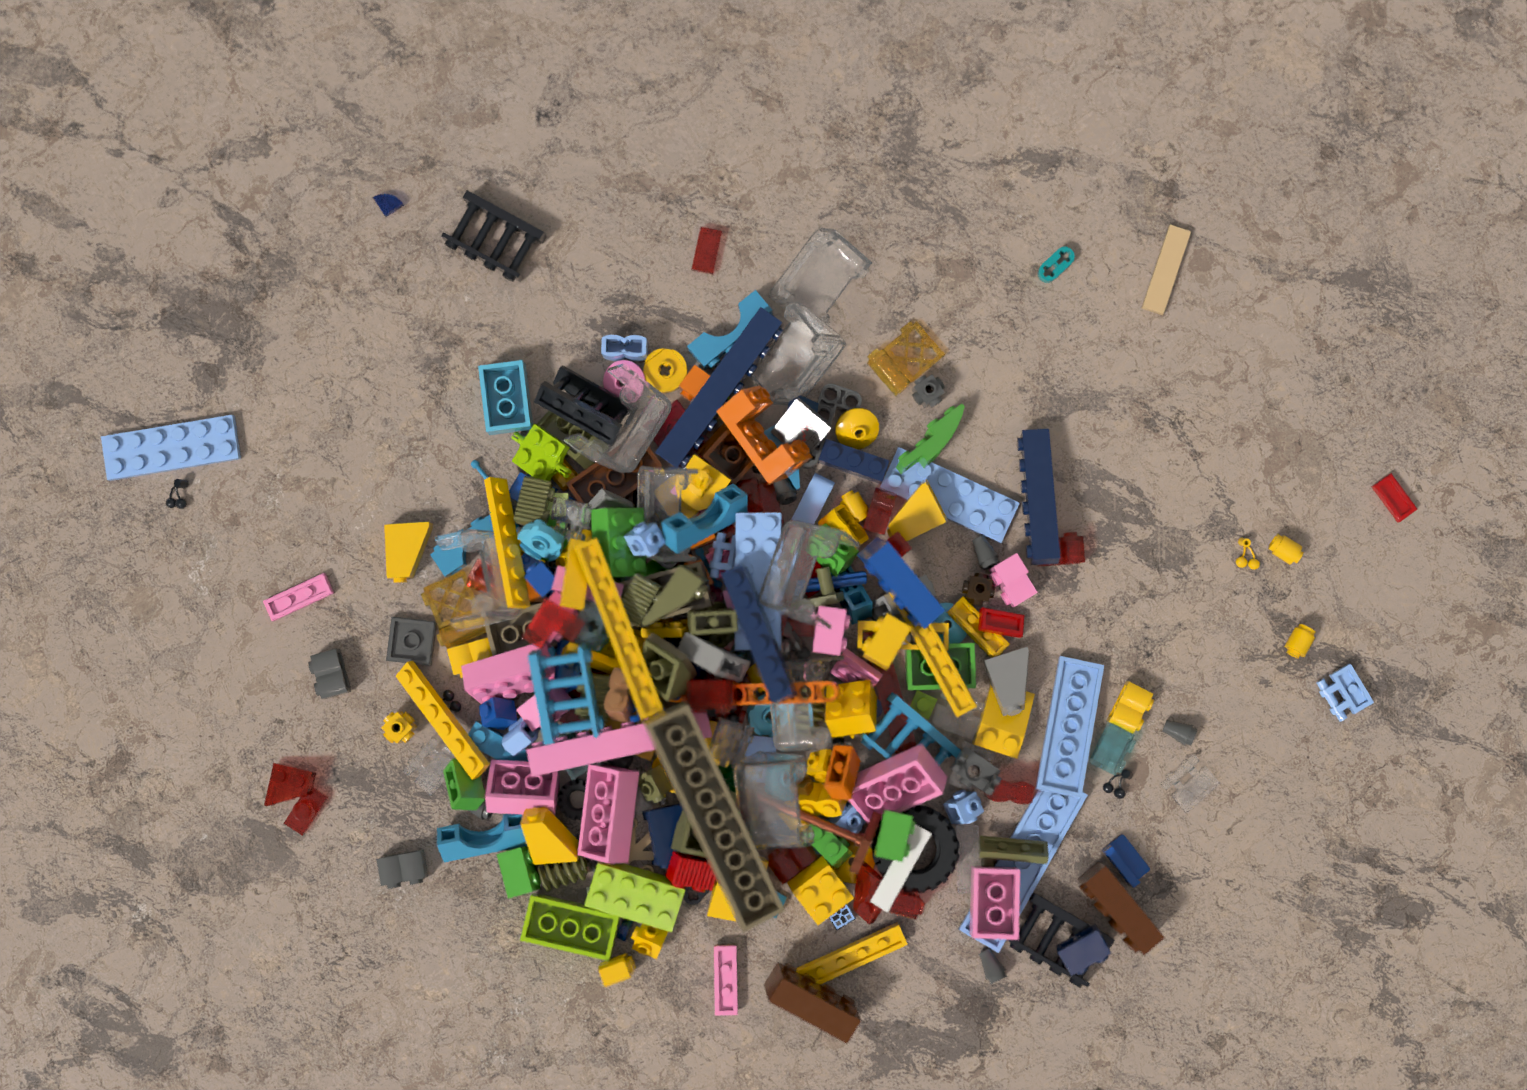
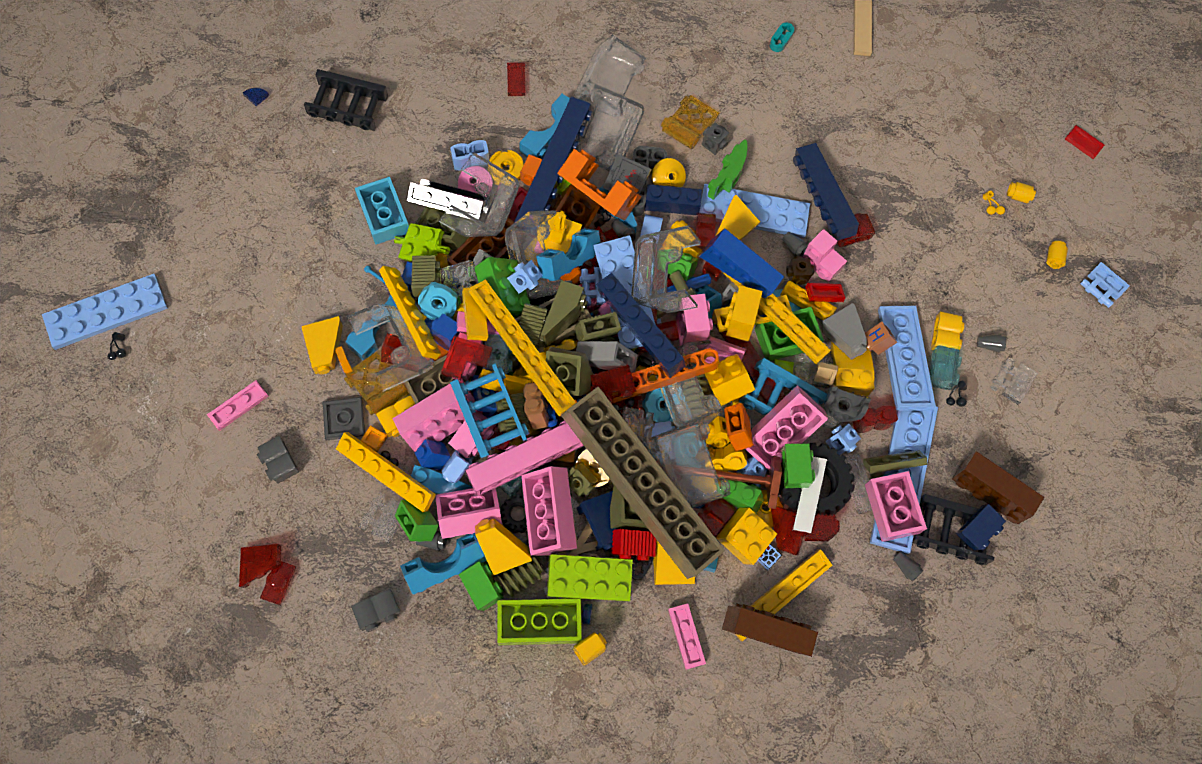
camera: 25 degrees left, 15 degrees down
(406, 724) = (351, 494): yellow brick -> none
(424, 575) = (343, 359): none -> light orange tile
(439, 673) = (374, 438): none -> light orange tile
(648, 940) = (611, 615): yellow brick -> none
(967, 726) = (825, 373): none -> tan tile
(1044, 699) = (880, 338): none -> nougat brick
(1126, 860) = (986, 449): blue panel -> none

